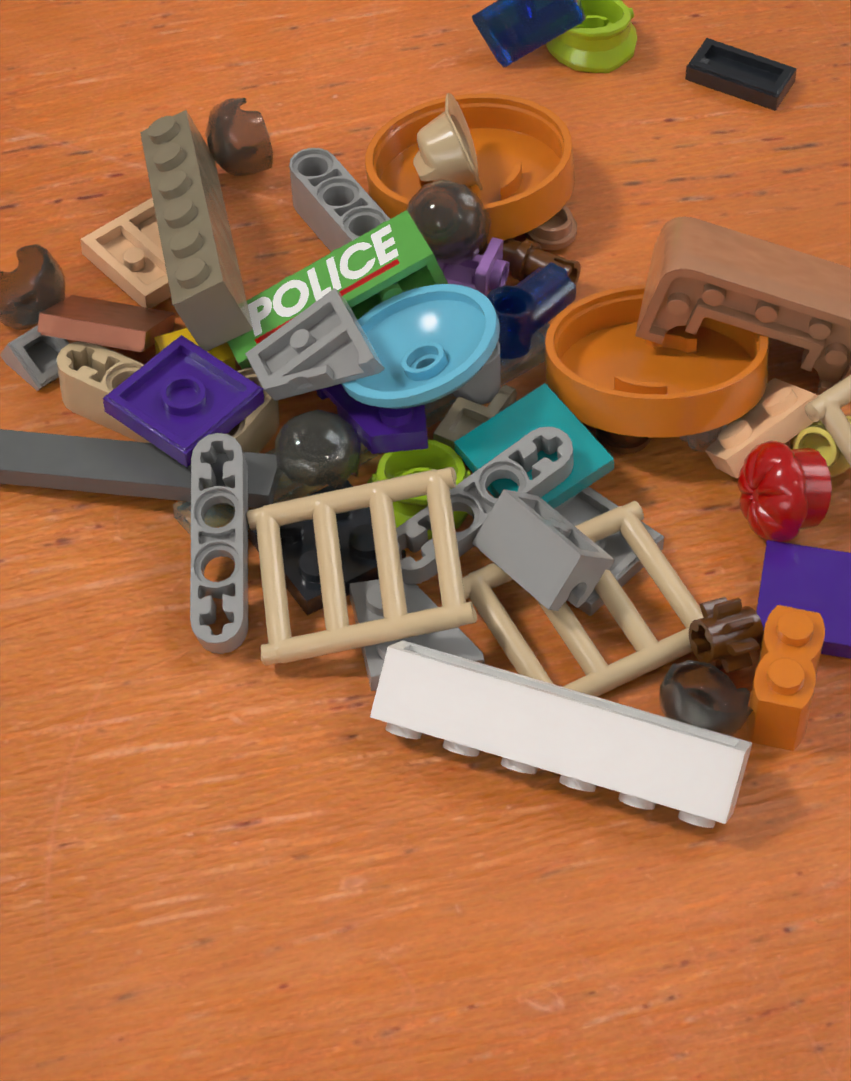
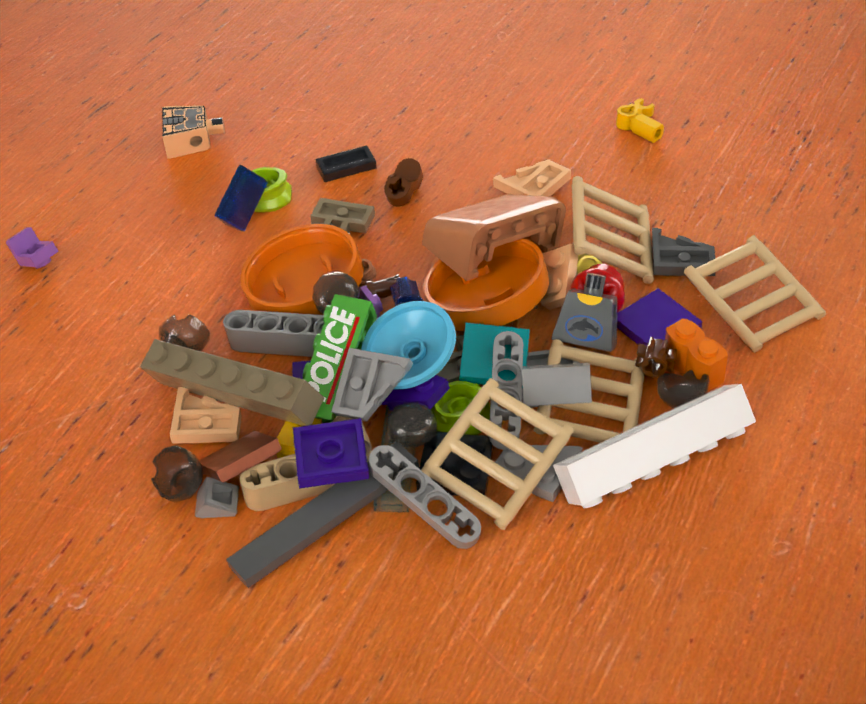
camera: 45 degrees left, 5 degrees down
(447, 148) = (294, 268): tan piece -> none
(622, 136) = (343, 215): none -> dark tan hinge
(712, 510) = (588, 316): none -> dark grey torso
(761, 153) = (403, 182): none -> reddish brown piece

